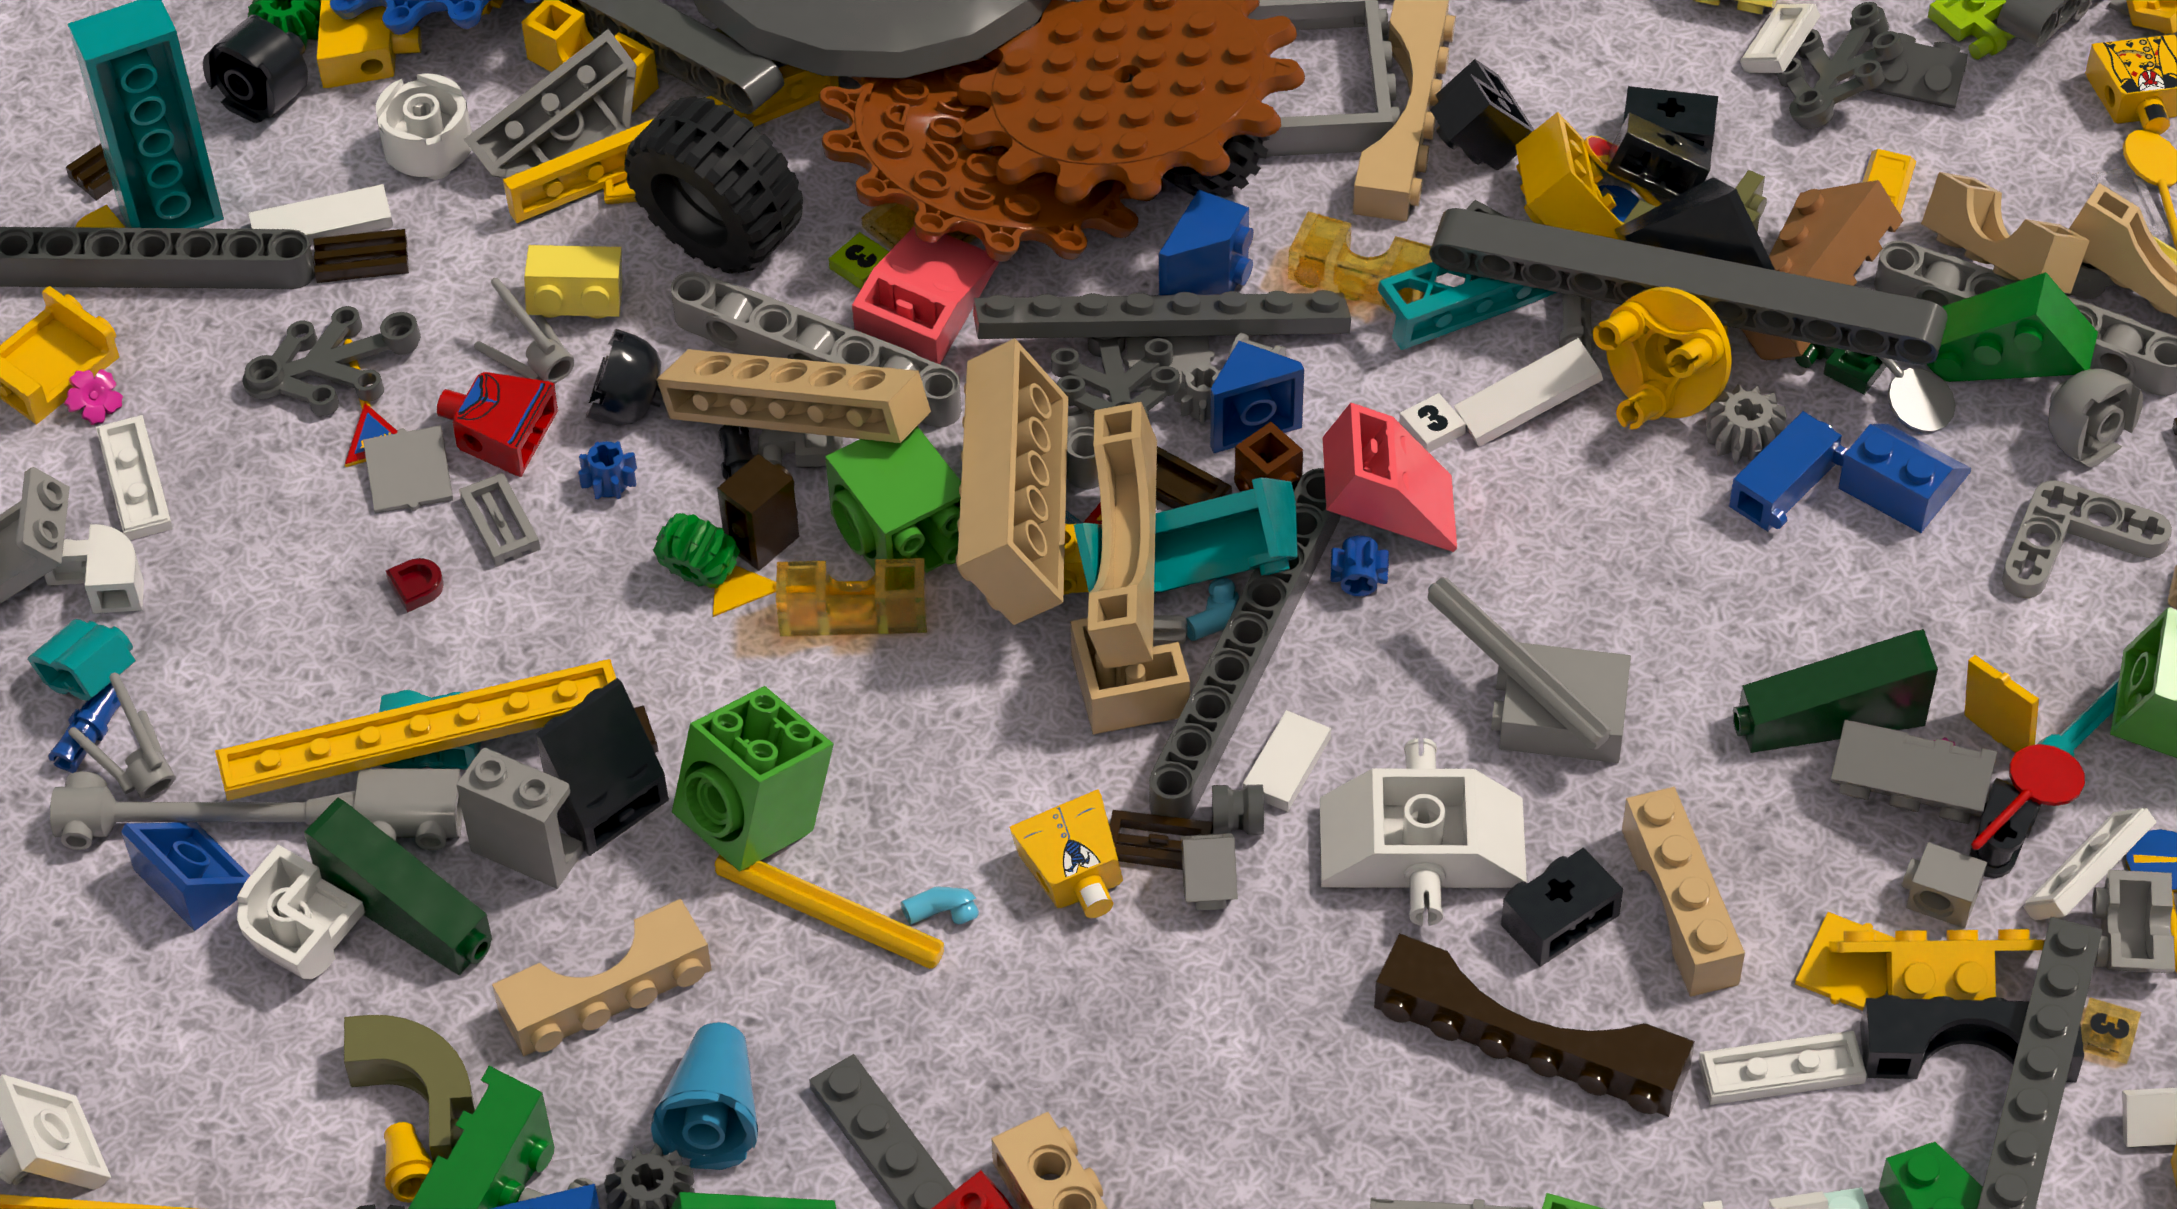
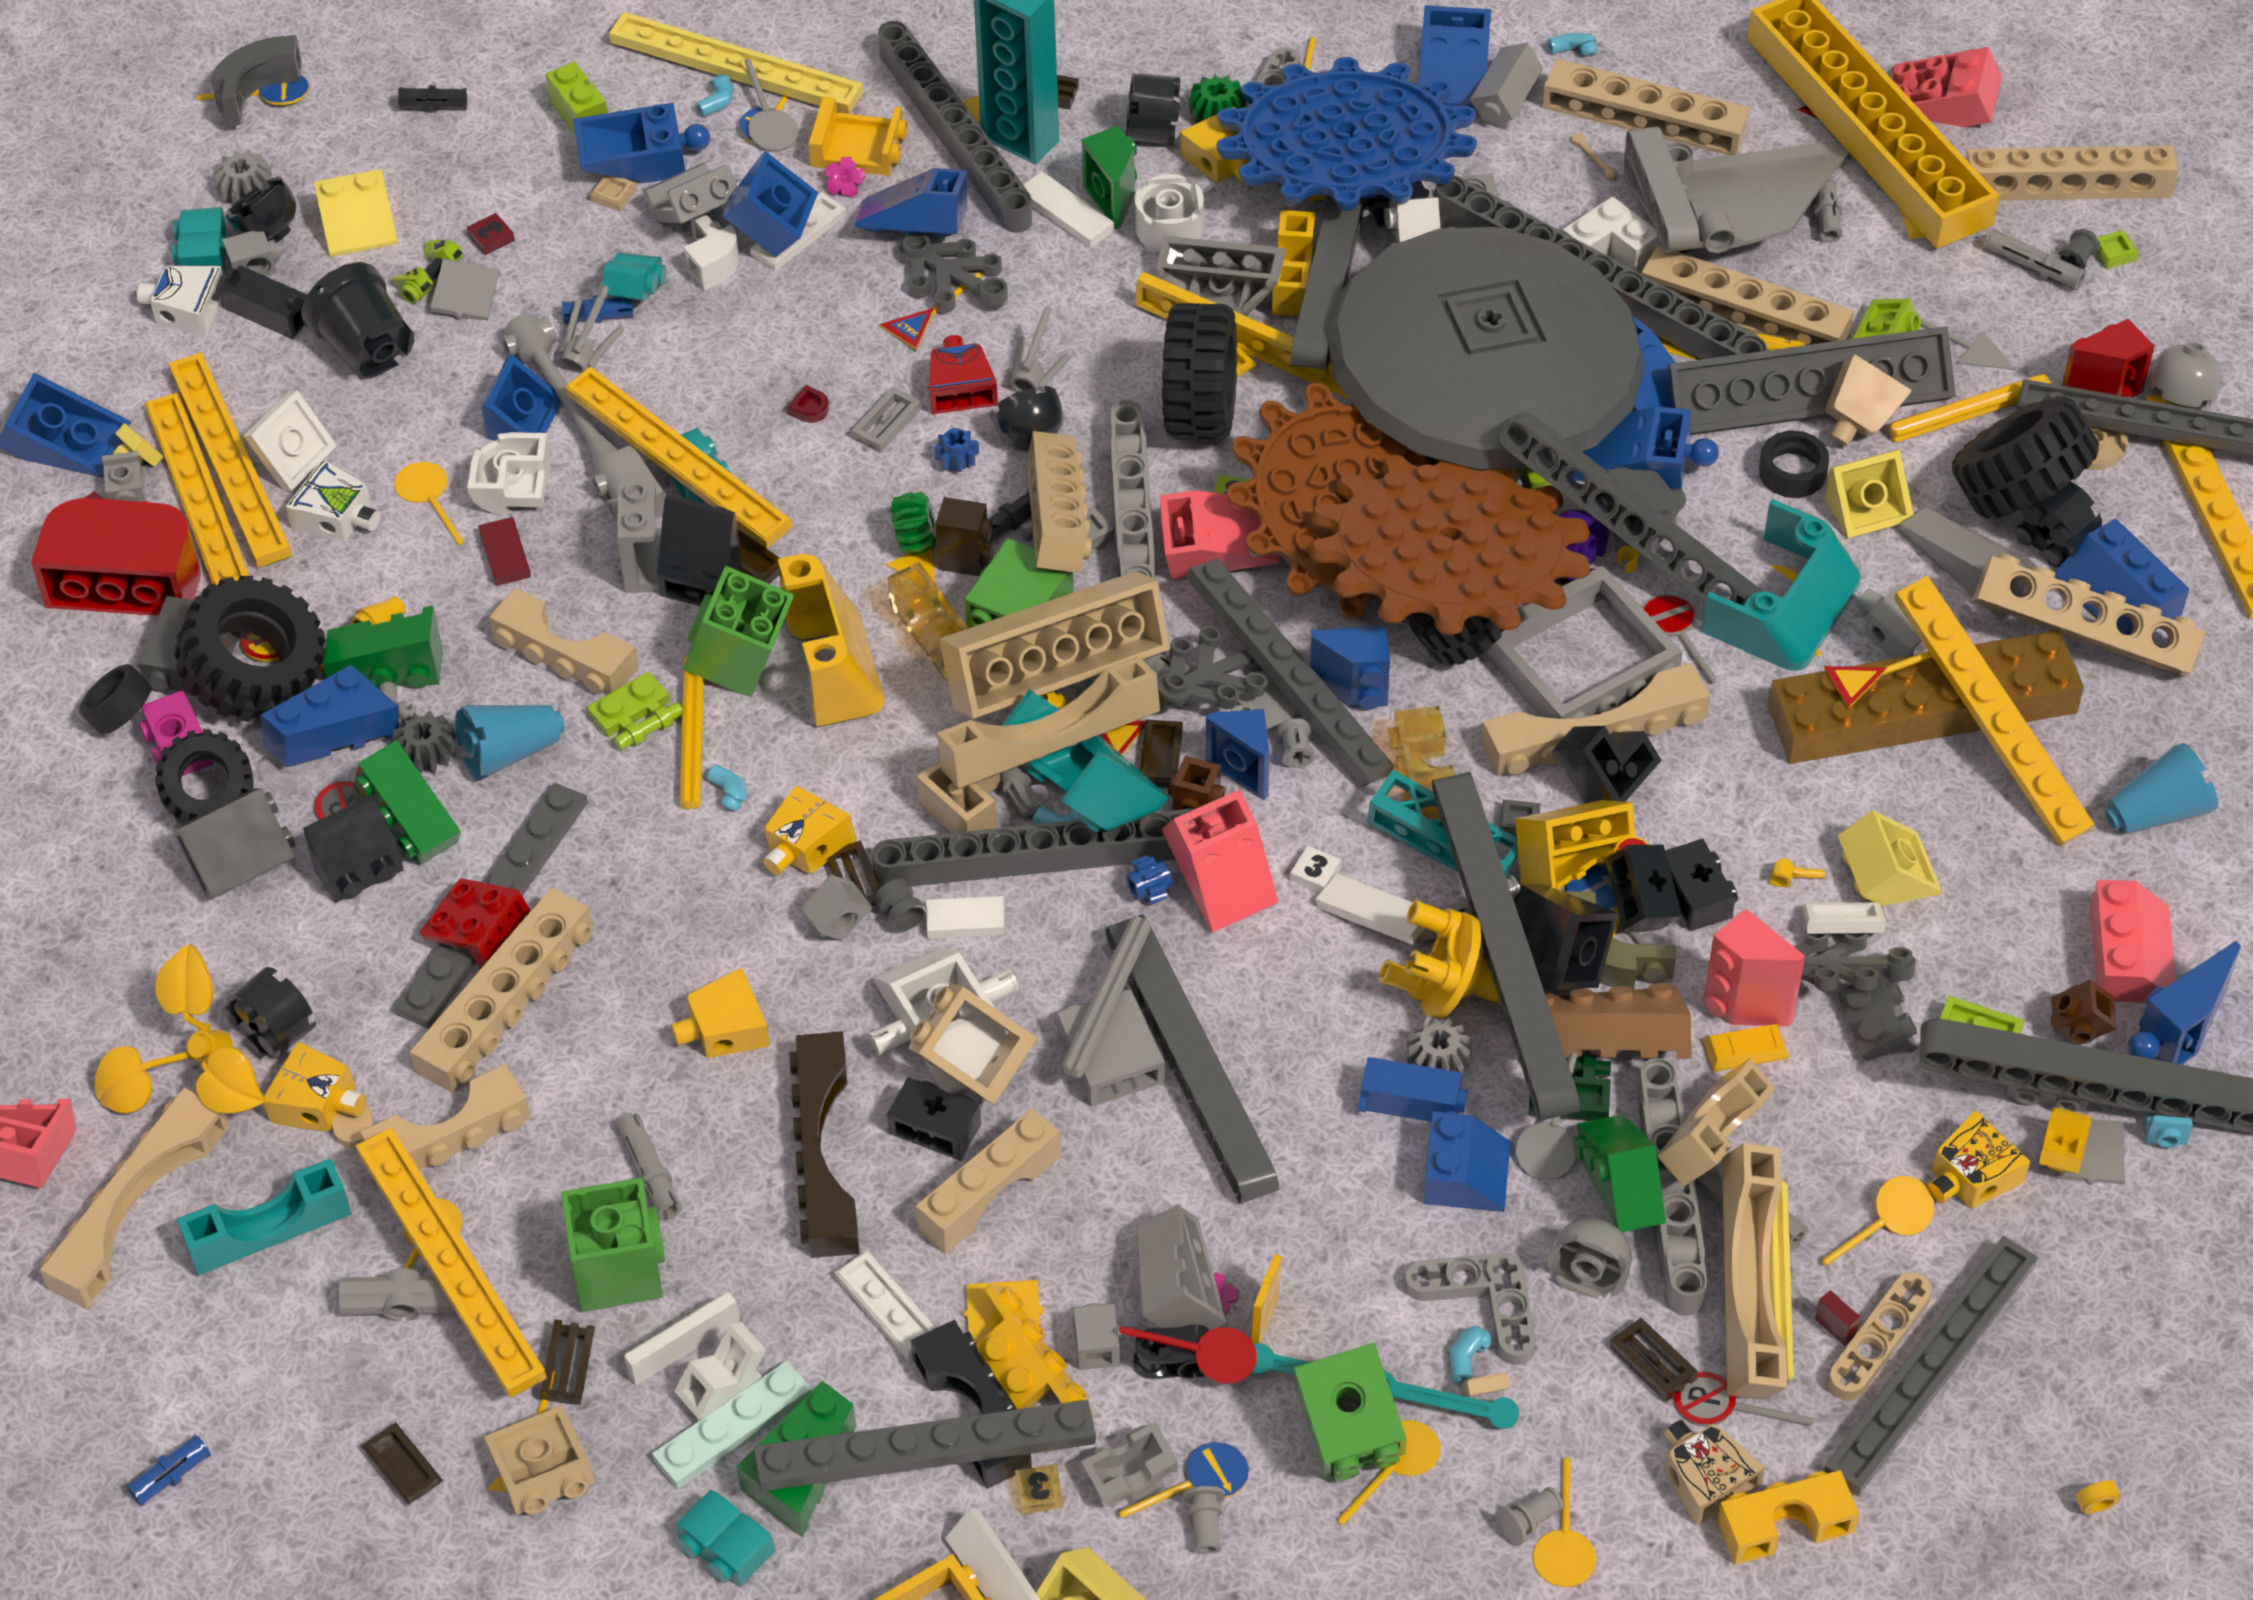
camera: 60 degrees right, 0 degrees up
(112, 466) = (771, 205): none -> blue slope
(182, 1134) = (331, 504): none -> white torso
(213, 337) = (923, 203): none -> blue slope
(216, 1028) = (424, 483): none -> yellow piece
(328, 145) = (1110, 172): none -> green slope
(361, 249) = (1054, 240): dark brown tile -> none
(397, 888) = (559, 507): dark green slope -> none
(398, 984) = (504, 551): none -> dark red tile
(408, 469) = (894, 355): light grey piece -> none
(415, 1057) = (450, 585): olive arch -> none
(573, 281) = (1095, 353): light yellow brick -> none
(739, 952) = (631, 703): none -> lime plate
(830, 691) = (849, 682): none -> yellow windscreen
(1288, 1049) = (723, 1017): none -> yellow torso
(1533, 799) = (1002, 1064): none -> tan window
(1655, 638) = (1198, 1070): none -> dark grey beam
(1693, 57) = (1785, 871): none -> yellow hand
(1837, 117) = (1752, 974): none -> coral slope
(1872, 685) = (1227, 1210): dark green slope -> none
(2089, 864) = (1173, 1417): white tile -> none
(2132, 581) = (1462, 1350): none -> medium azure arm

